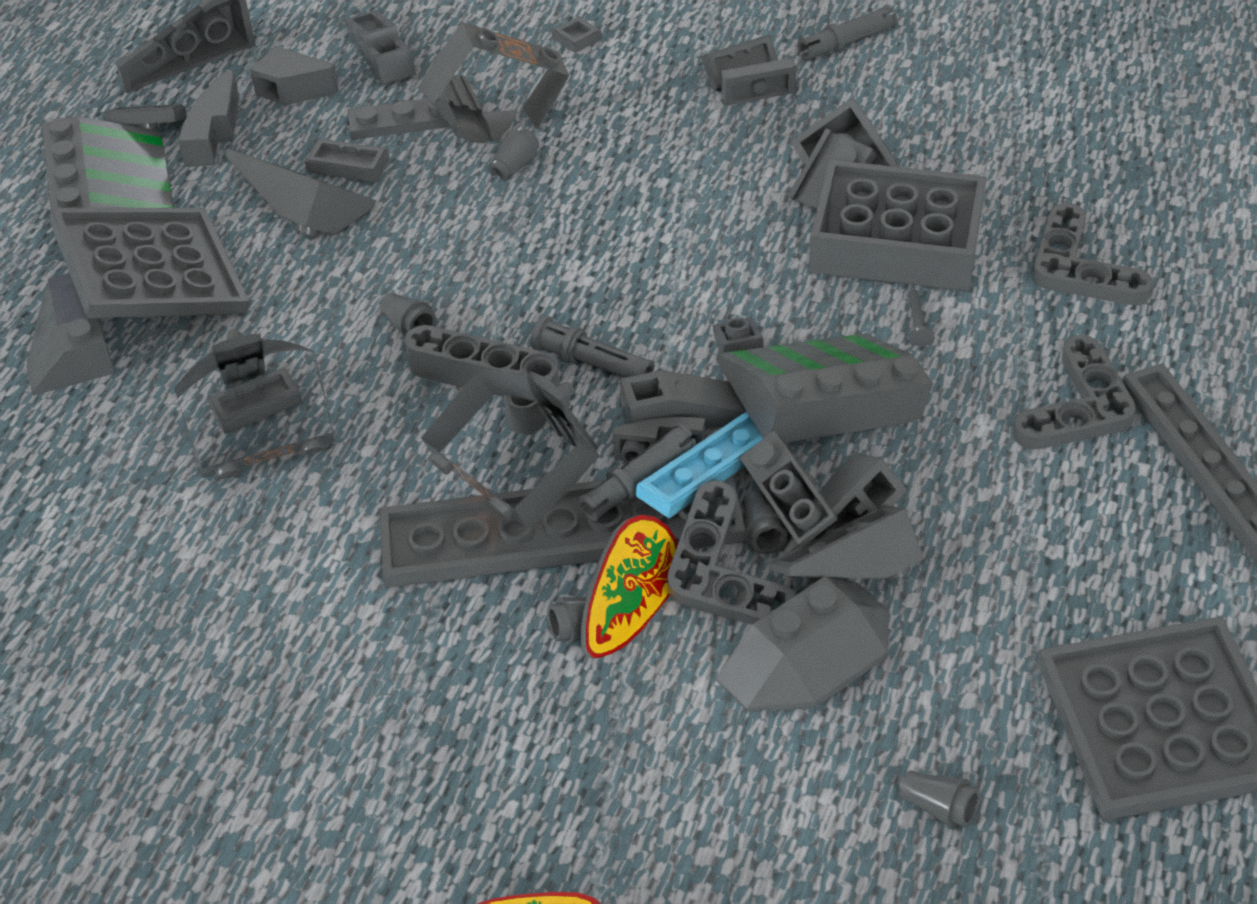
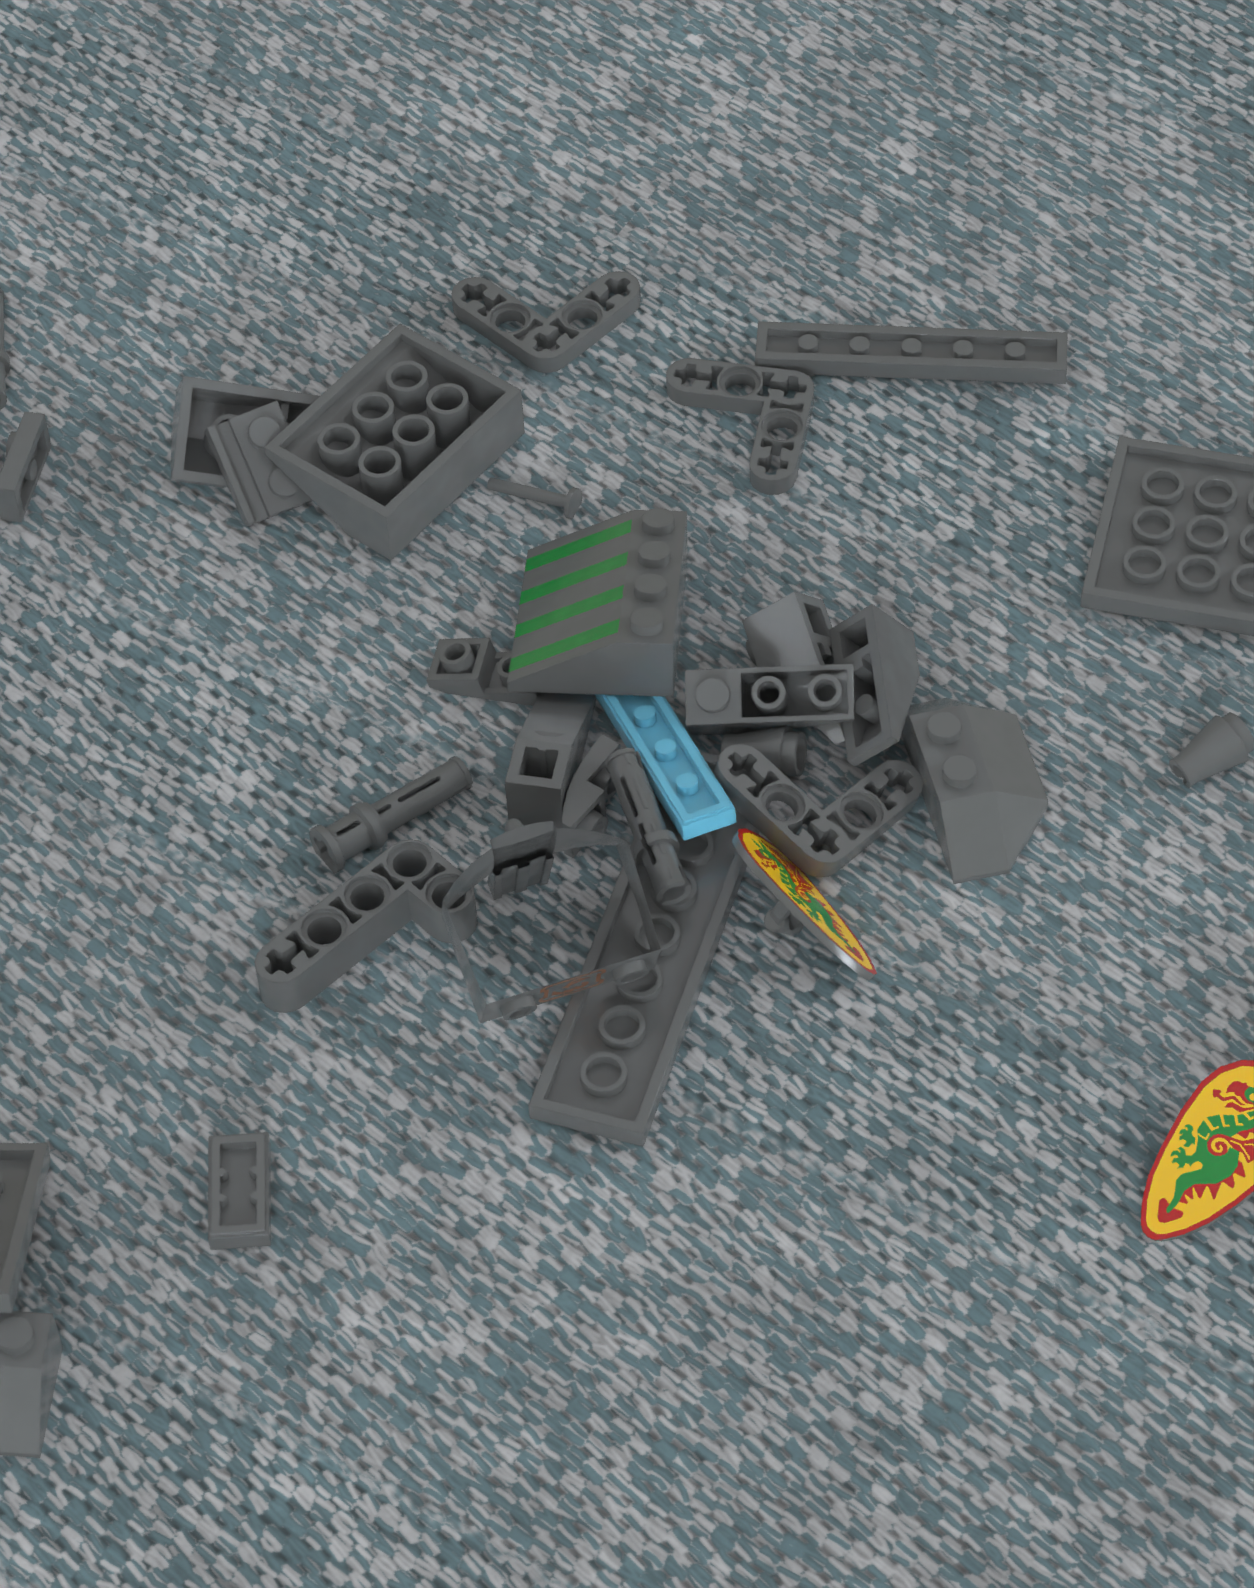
camera: 65 degrees left, 5 degrees up
(238, 359) = (196, 1174): dark grey piece -> none
(406, 312) = (194, 977): dark grey cone -> none
(566, 618) = (807, 971): dark grey cone -> none

